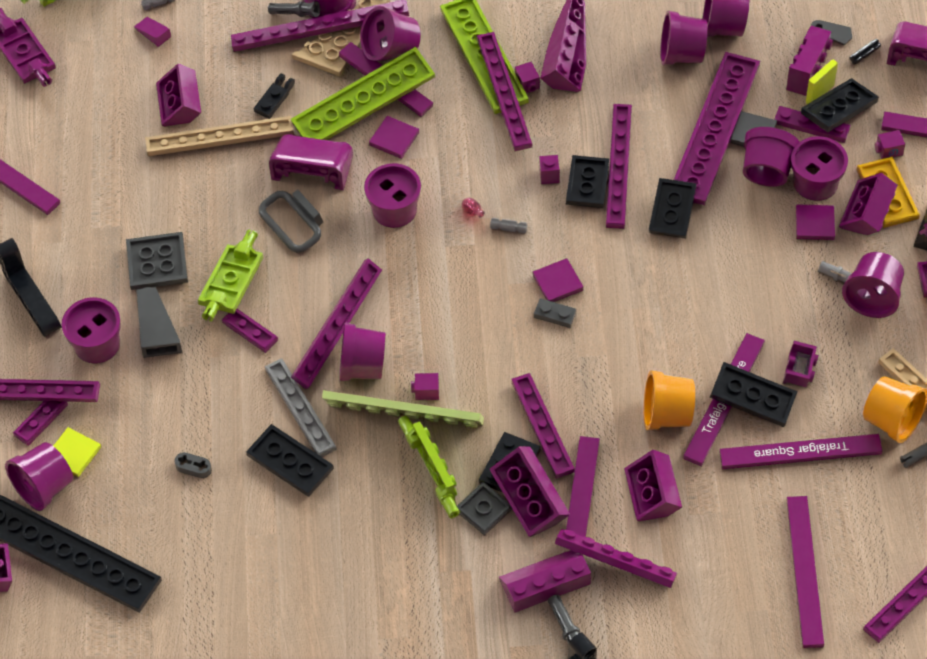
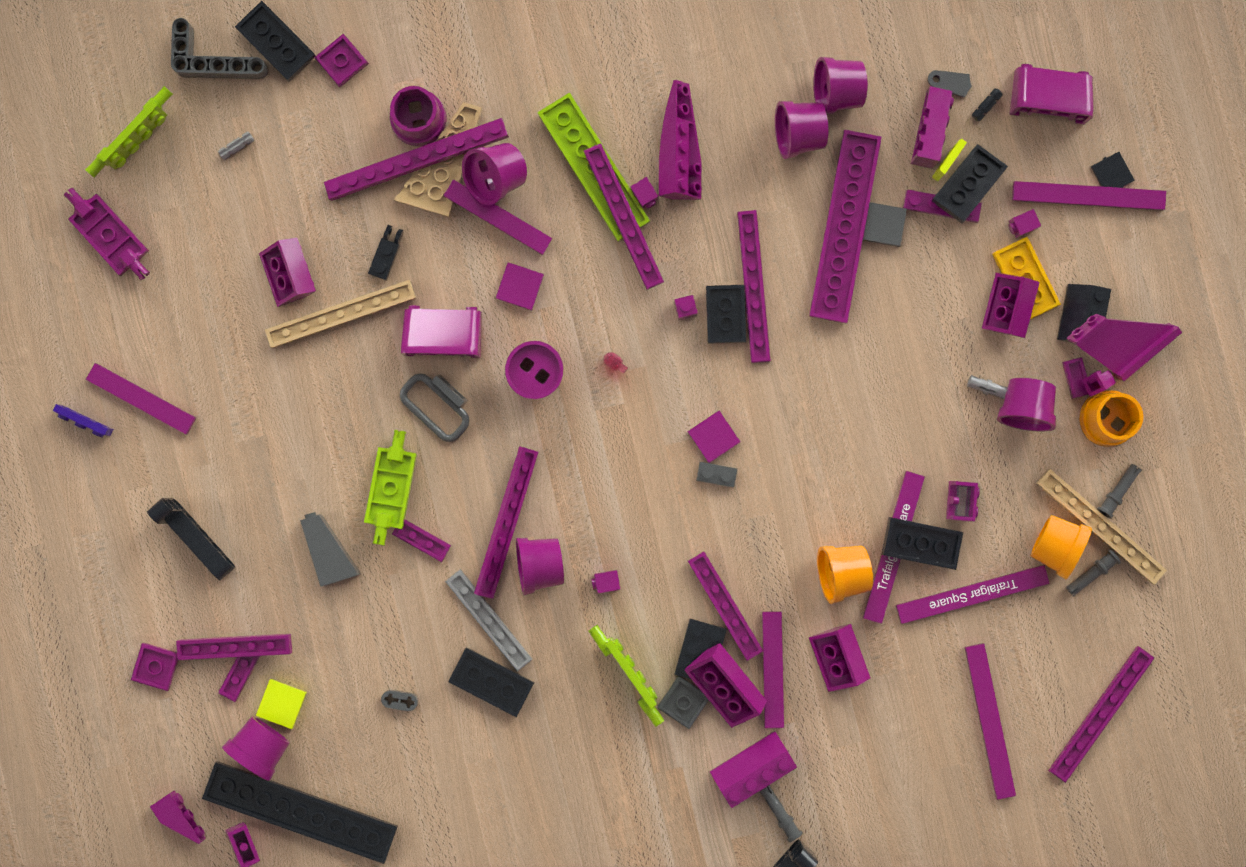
camera: 15 degrees left, 30 degrees up
(102, 320) = (254, 568): magenta piece -> none
(153, 30) = (239, 186): magenta slope -> none
(156, 260) = (311, 476): dark grey plate -> none
(300, 8) = (390, 142): dark grey pin -> none
(364, 96) = (480, 248): lime plate -> none
(394, 408) = (589, 613): yellowish green plate -> none
(508, 225) = (654, 378): light grey axle -> none
(613, 557) = (816, 742): magenta plate -> none
(672, 208) = (816, 337): black plate -> none
(768, 155) = (907, 267): magenta piece -> none
(815, 222) = (958, 327): magenta tile -> none
(827, 157) = (971, 281): magenta piece -> none

